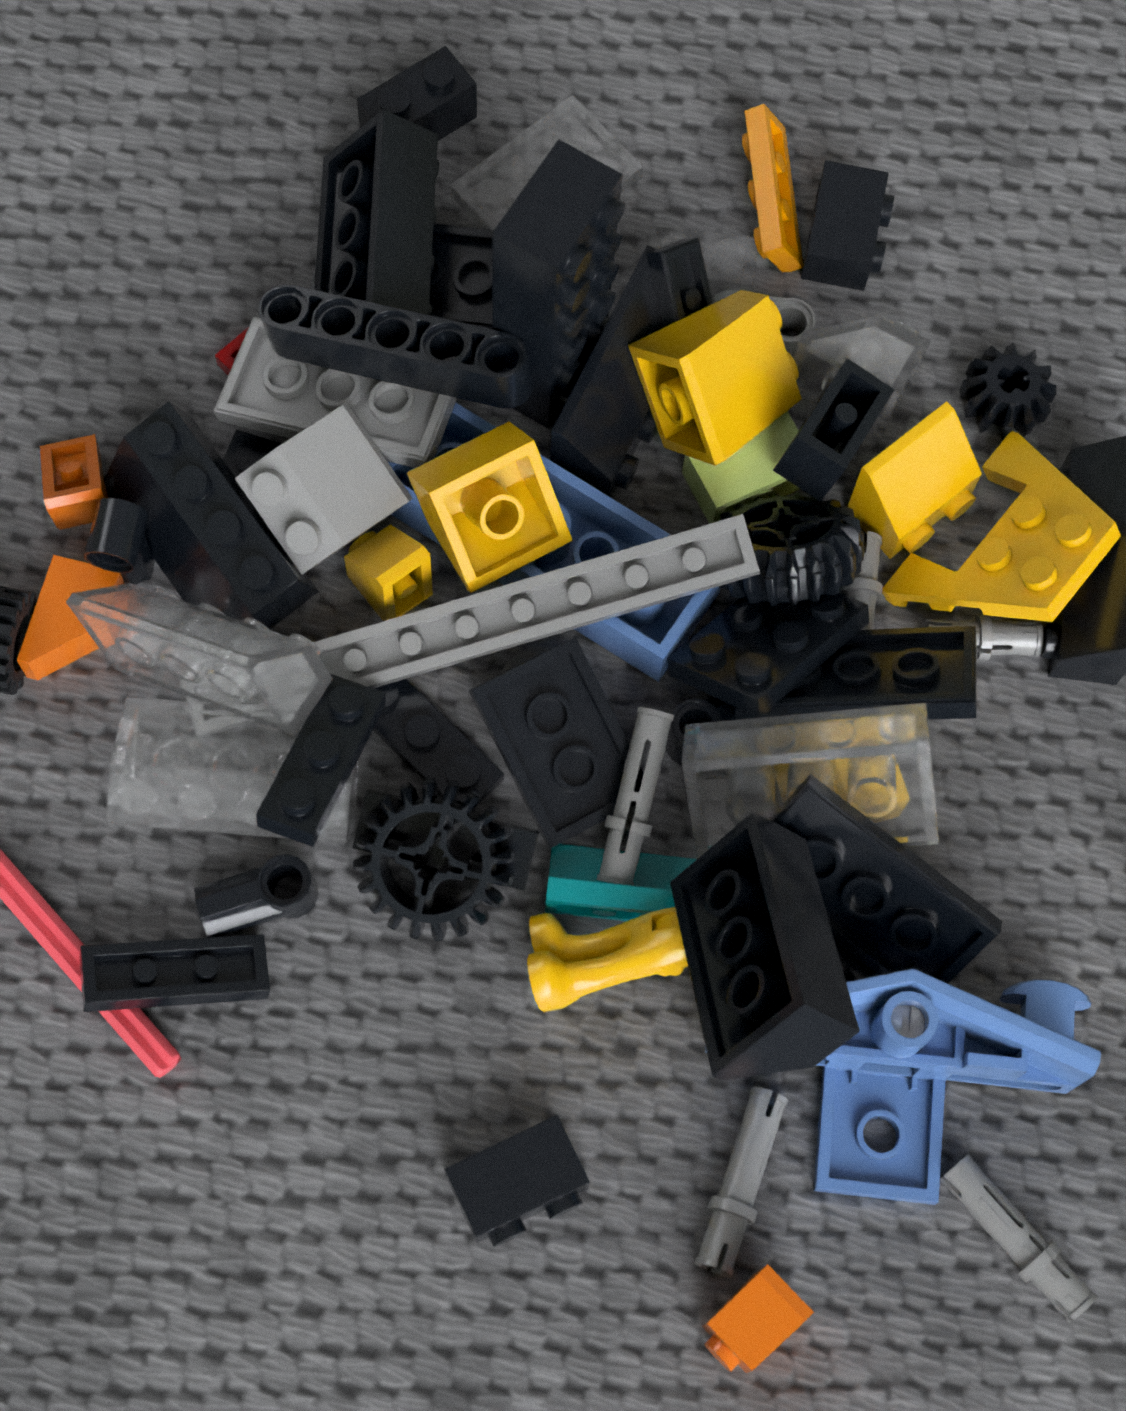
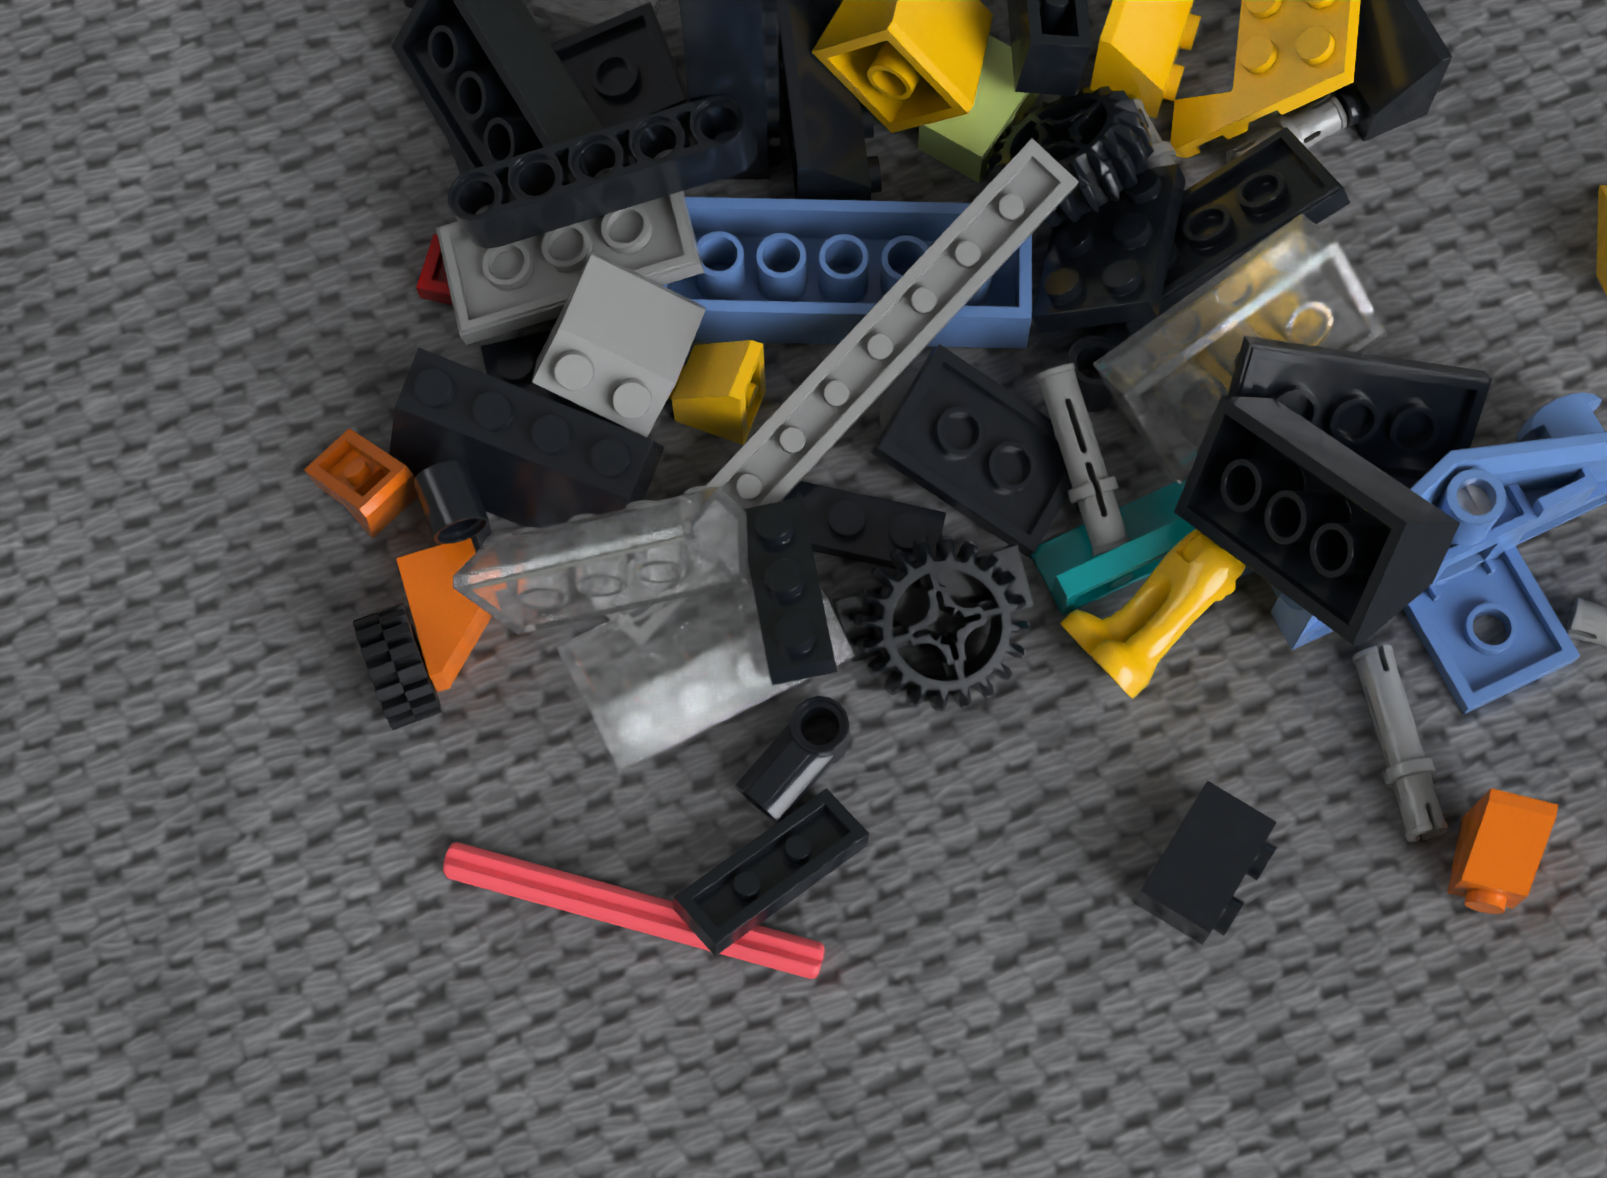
camera: 25 degrees left, 0 degrees up
(491, 505) = (786, 267): yellow slope -> none

